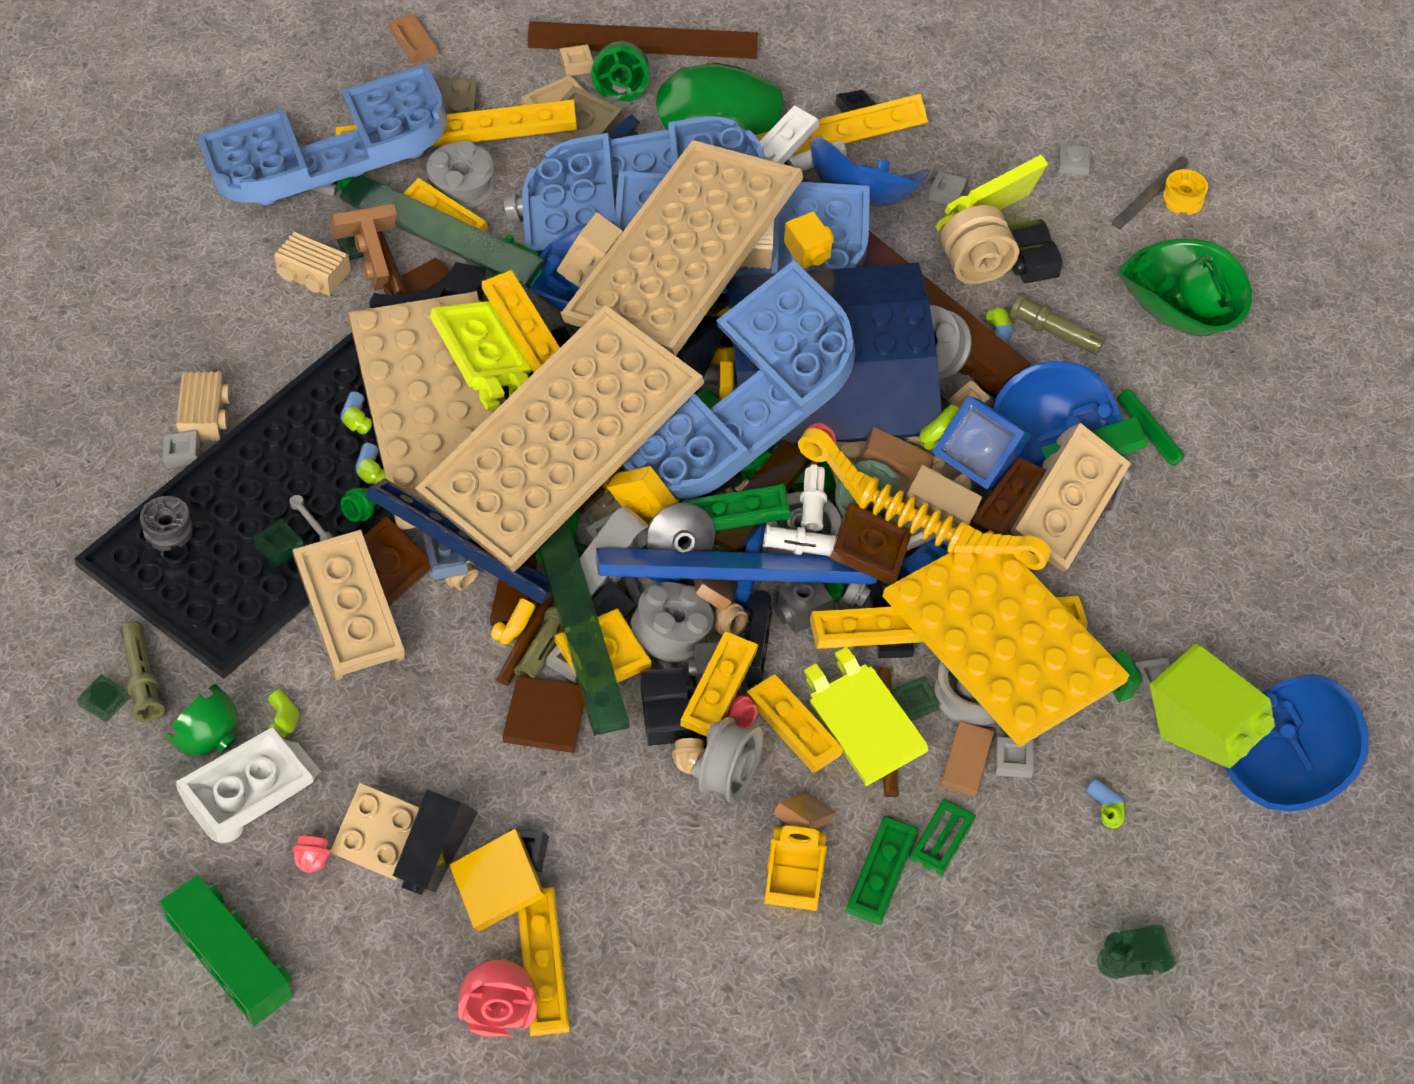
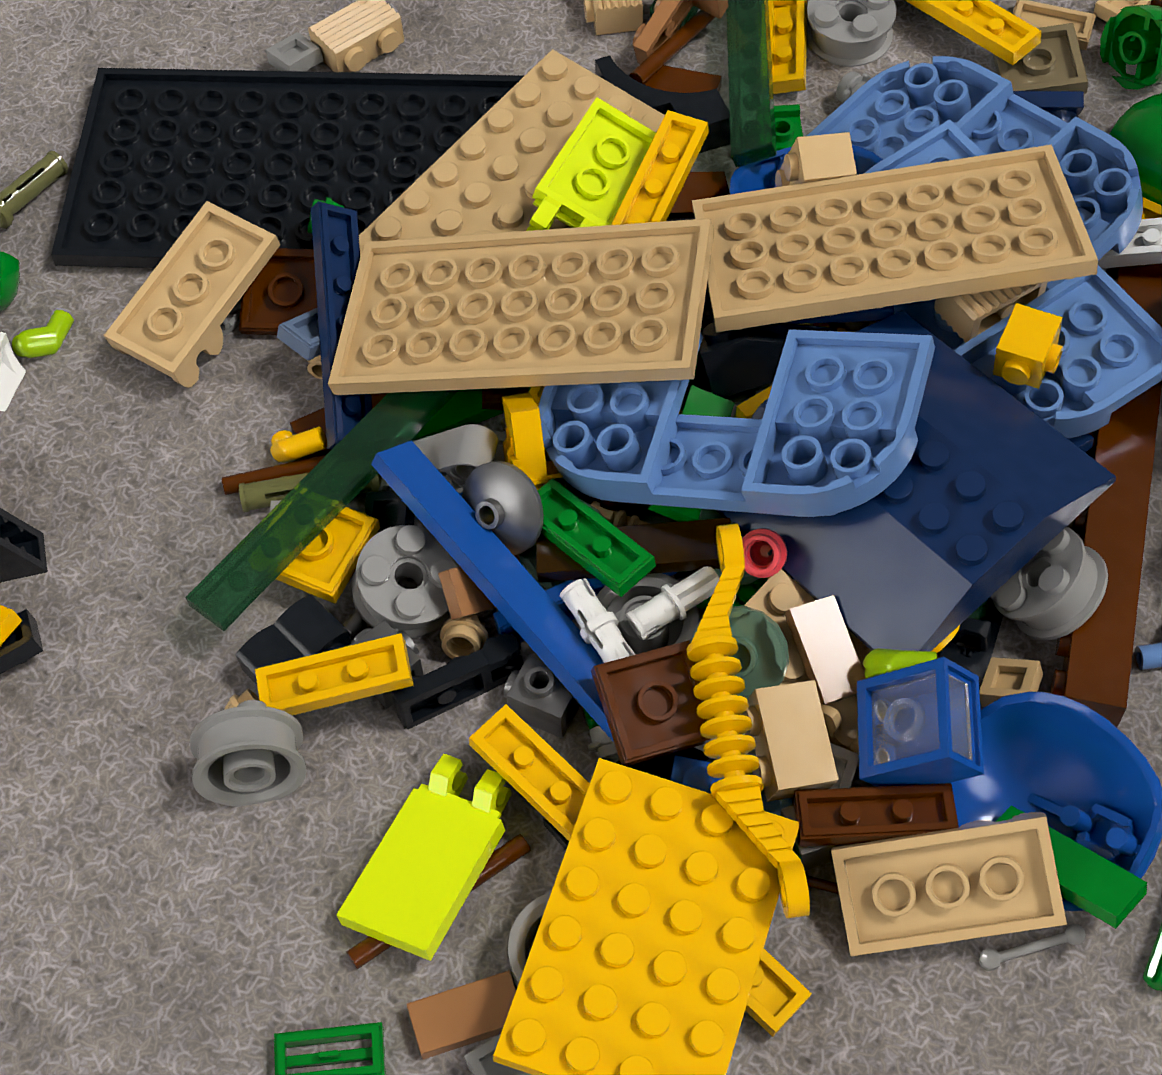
camera: 60 degrees right, 5 degrees up
(156, 519) = (180, 97): flat silver wheel -> none
(277, 542) = (227, 189): clear green plate -> none
(297, 503) = (296, 176): light grey hinge -> none
(353, 416) = (440, 140): lime arm -> none
(366, 466) = (384, 194): lime arm -> none
(544, 715) = (199, 541): reddish brown tile -> none
(743, 711) = (341, 727): coral plate -> none
(794, 723) = (369, 792): yellow plate -> none
(795, 867) = (169, 918): yellow piece -> none
(804, 812) = (236, 879): medium nougat tile -> none
(882, 870) = (235, 1016): green tile -> none
(916, 698) = (507, 898): clear green tile -> none

